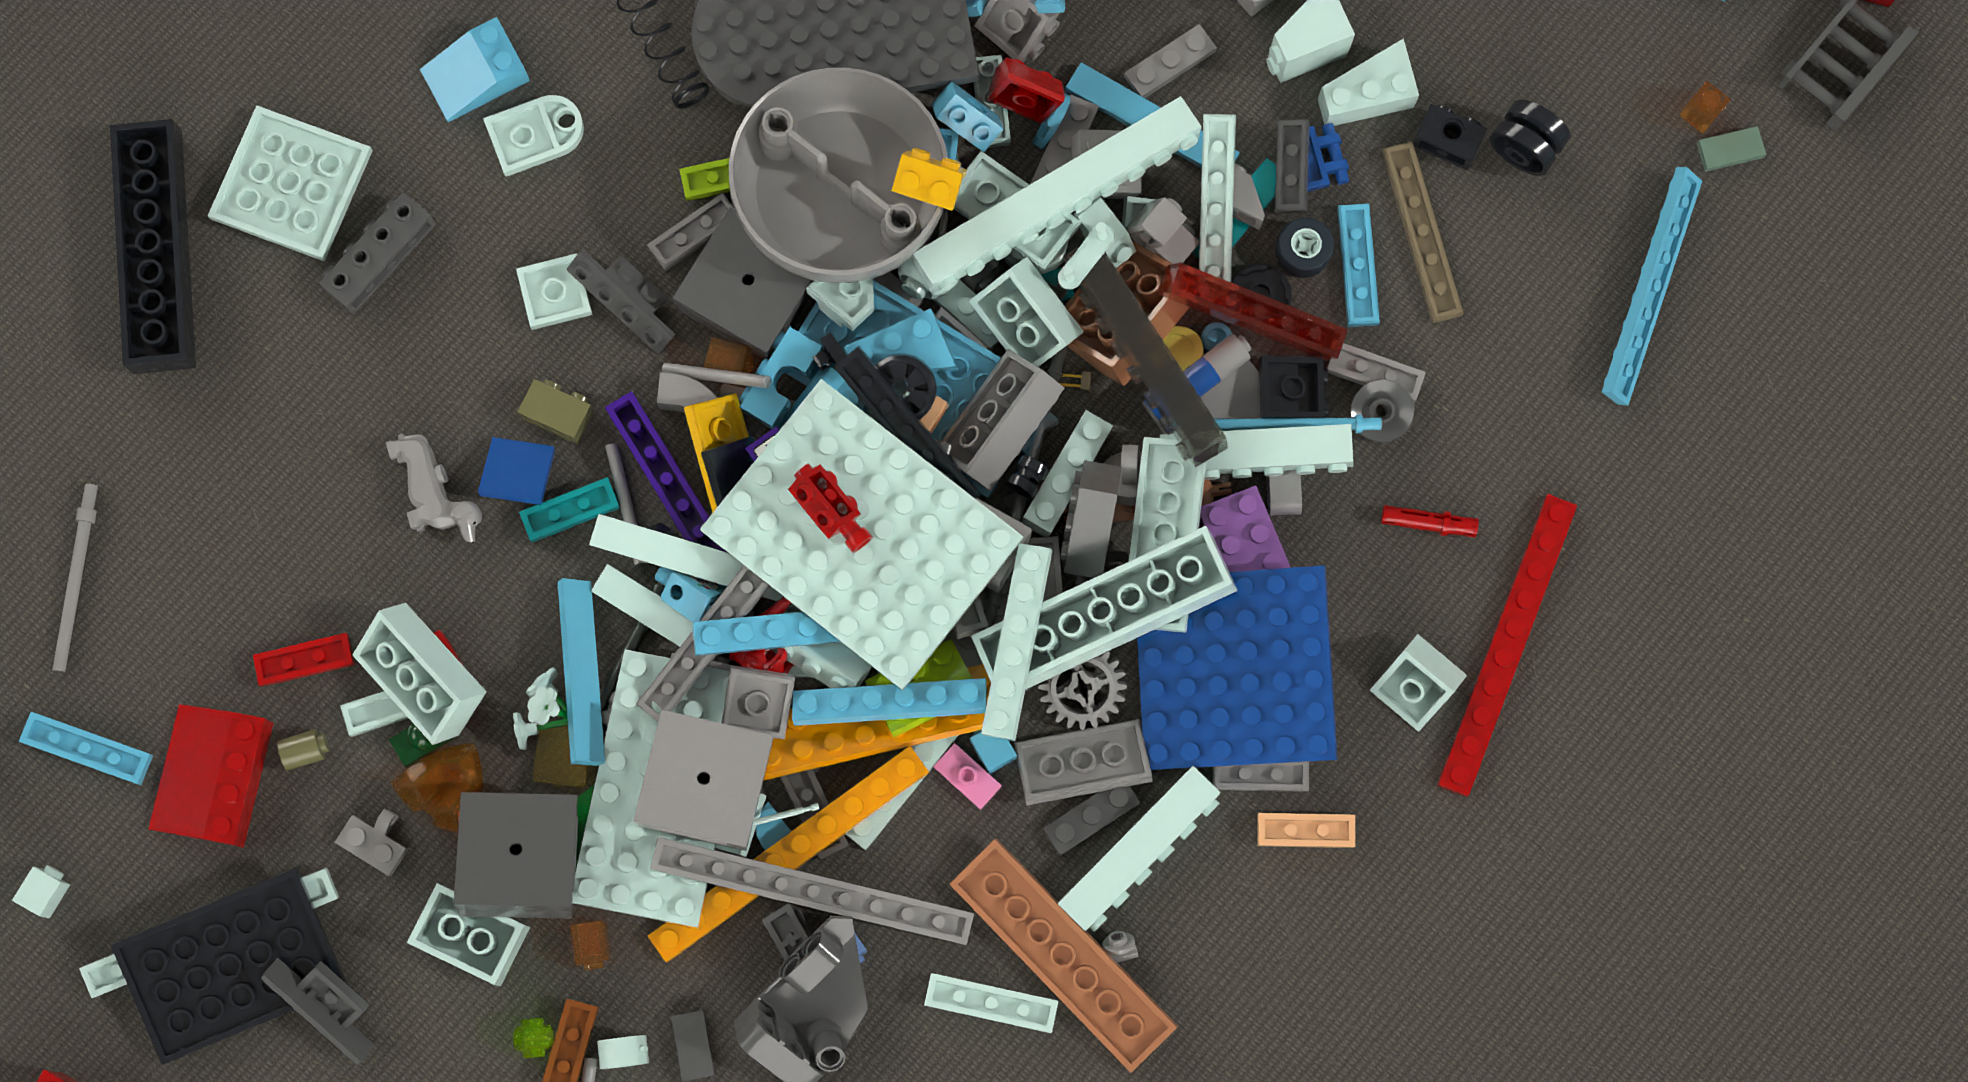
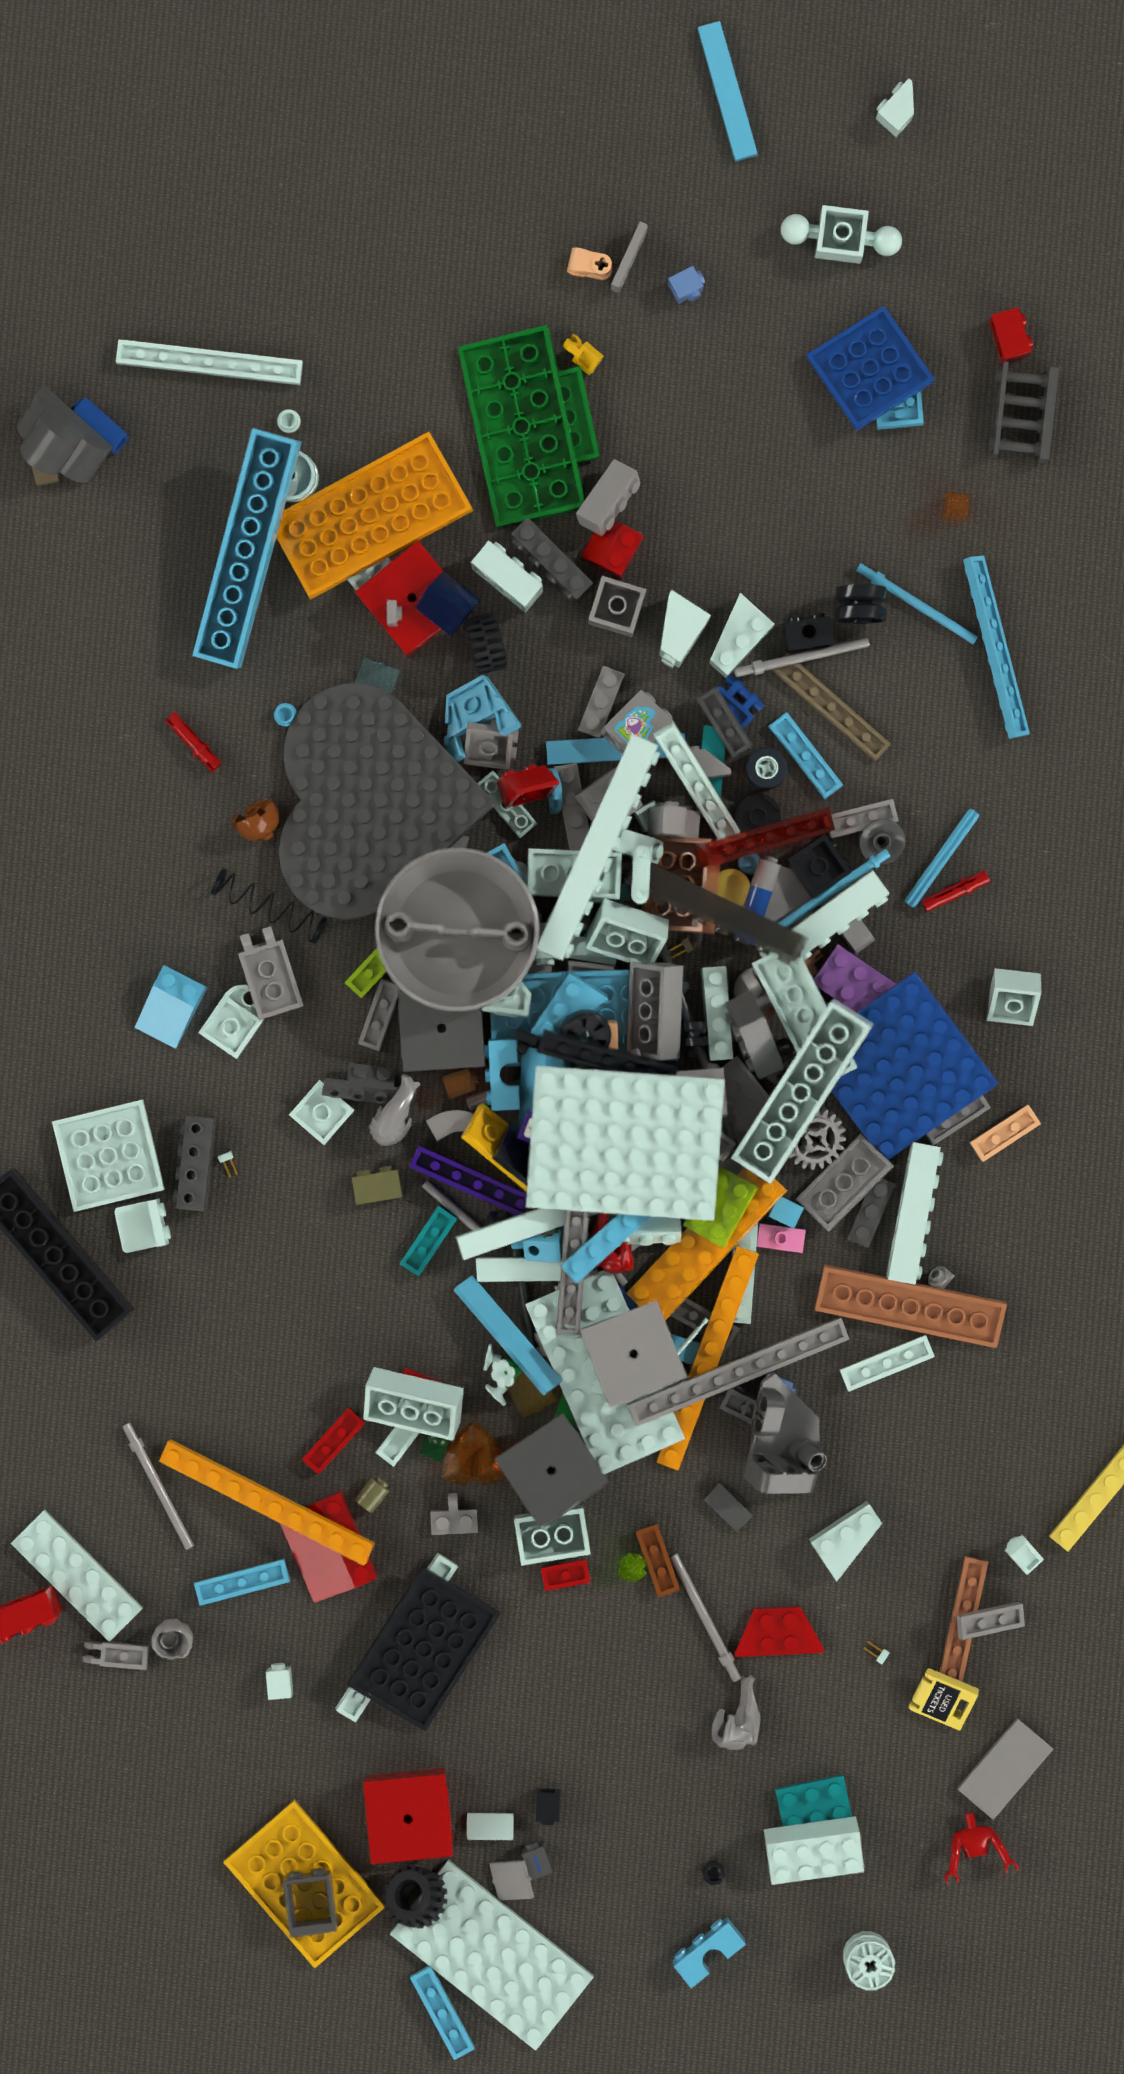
camera: 35 degrees left, 10 degrees up
(178, 675) = (267, 1502): none -> light orange plate
(270, 281) = (142, 1225): none -> light aqua bracket
(324, 1003) = (497, 1632): dark grey bracket -> none
(417, 271) = (224, 1157): none -> light aqua piece
(428, 492) = (334, 1288): light grey animal -> none
(452, 994) = (565, 1574): none -> red plate
(516, 471) = (379, 1239): blue tile -> none
(591, 944) = (627, 1490): clear orange brick -> none
(603, 108) = (269, 975): none -> light grey tile
(617, 349) = (389, 1122): none -> light grey hair
(623, 1052) = (691, 1539): light aqua piece -> none
(717, 375) = (462, 1099): light grey bar -> none
(758, 700) = (629, 1283): light grey tile -> none
(828, 504) = (598, 1143): red brick -> none
(889, 702) = (709, 1231): medium azure plate -> none
(929, 178) = (517, 898): yellow bracket -> none
(967, 116) = (504, 831): medium azure brick -> none
(1016, 642) = (762, 1144): light aqua plate -> none
(1201, 92) = (638, 717): none -> panel
(1370, 132) = (758, 667): none -> light grey bar
(1437, 475) = (941, 858): none -> medium azure axle
(1507, 645) = (1051, 935): red plate -> none
(1595, 189) = (878, 579): none -> medium azure bar
(1731, 148) = (988, 521): sand green tile -> none

